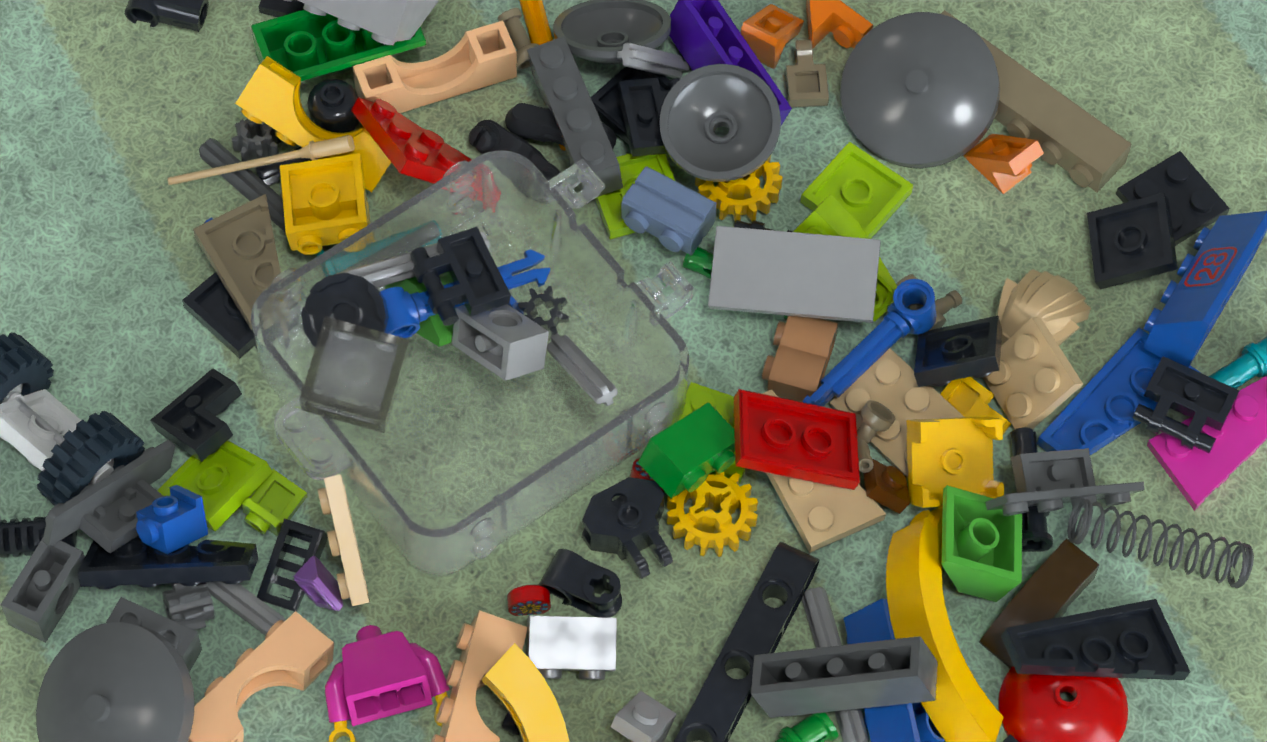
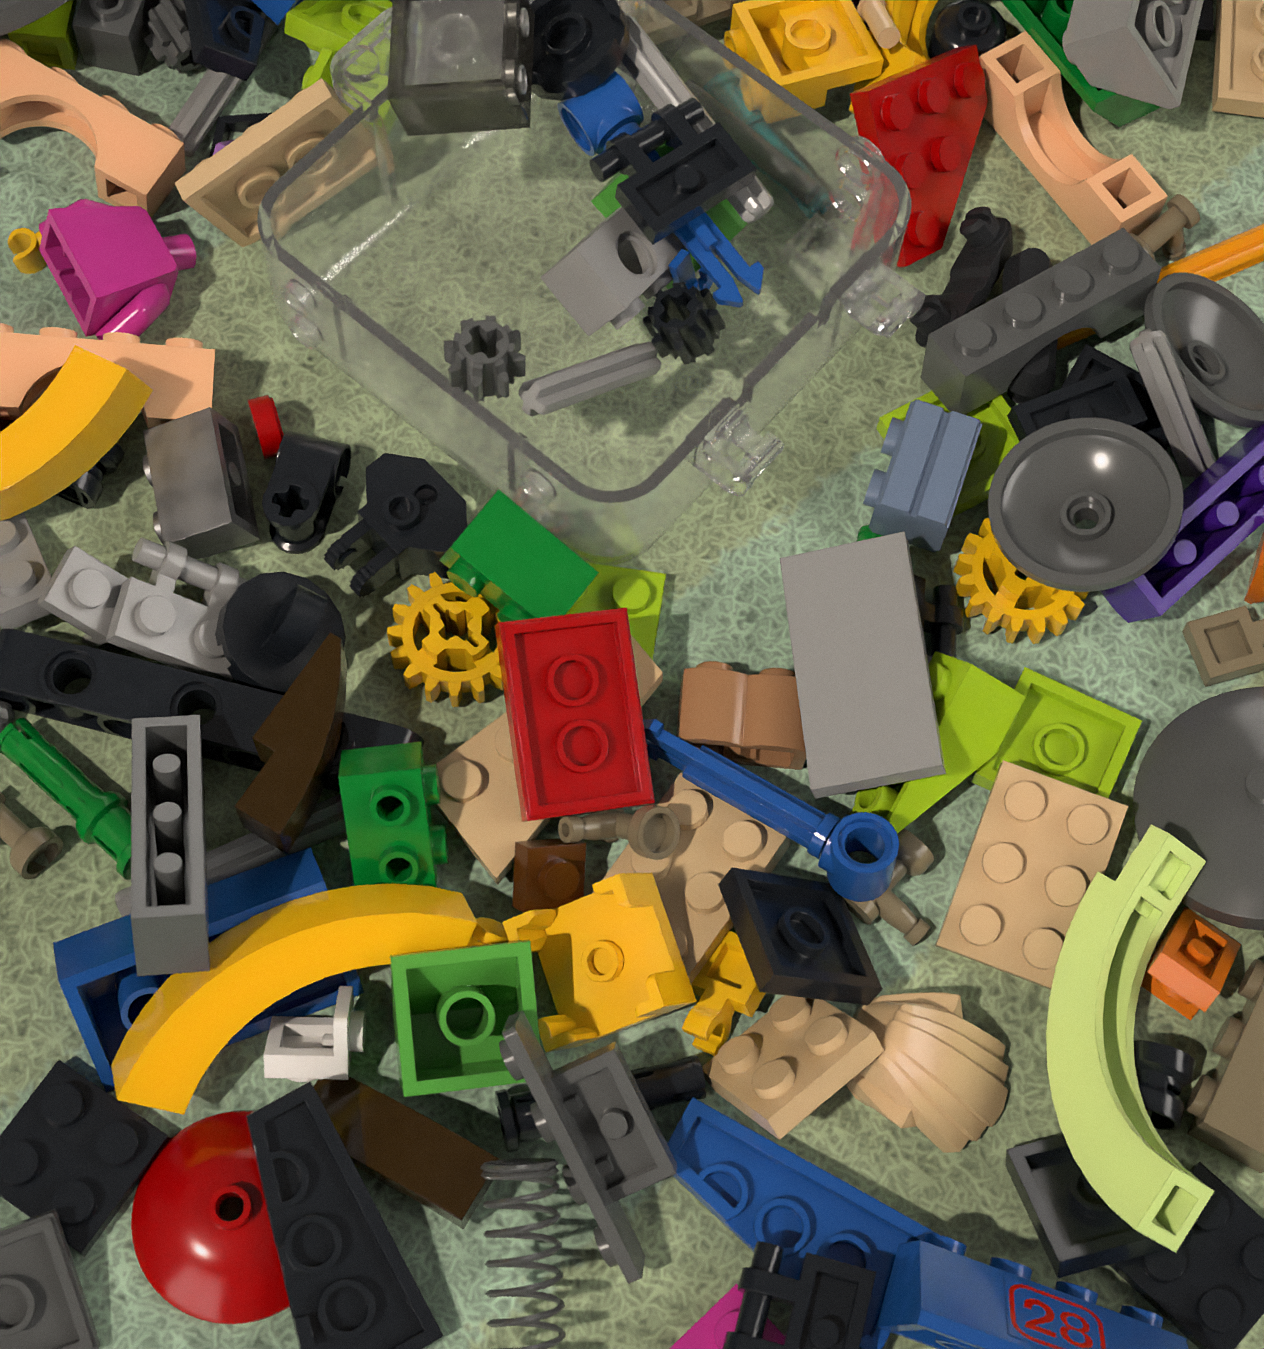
camera: 75 degrees right, 5 degrees up
(592, 410) = (484, 358): none -> dark grey gear
(675, 670) = (167, 625): none -> light grey plate
(691, 610) = (275, 629): none -> black tile
(789, 598) = (298, 749): none -> dark brown slope
(840, 562) = (389, 815): none -> green brick
(935, 226) = (1028, 872): none -> tan plate
(973, 632) = (316, 1046): none -> white bracket
(1050, 218) = (1094, 1041): none -> yellowish green arch
(1068, 196) = (1161, 1077): none -> black wheel

